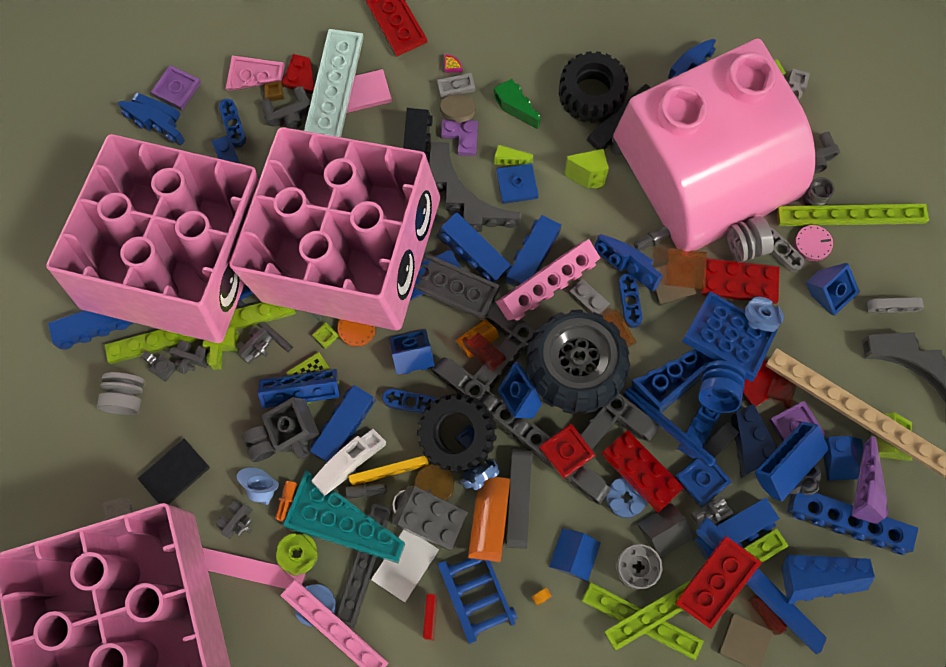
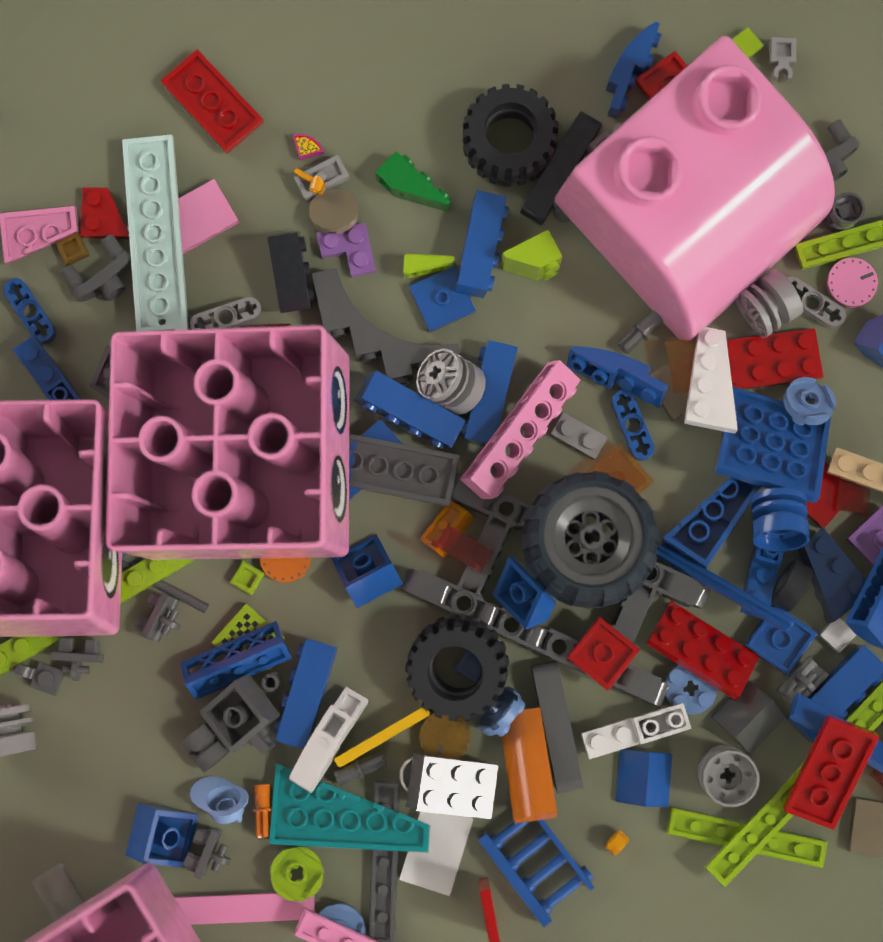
camera: 15 degrees left, 10 degrees up
(174, 473) = (106, 812): black tile -> none
(207, 498) = (161, 835): none -> blue slope
(215, 350) = (111, 647): lime brick -> none
(325, 411) = (278, 682): none -> dark grey pin
(395, 403) = (365, 644): blue beam -> none
(451, 85) = (317, 185): none -> light orange hand
(507, 234) = (450, 381): none -> light grey wheel
(553, 153) = (480, 244): none -> blue brick
(577, 516) = (635, 730): none -> white slope
(693, 284) = (710, 389): none -> white wing
(747, 487) = (837, 635): none -> white tile

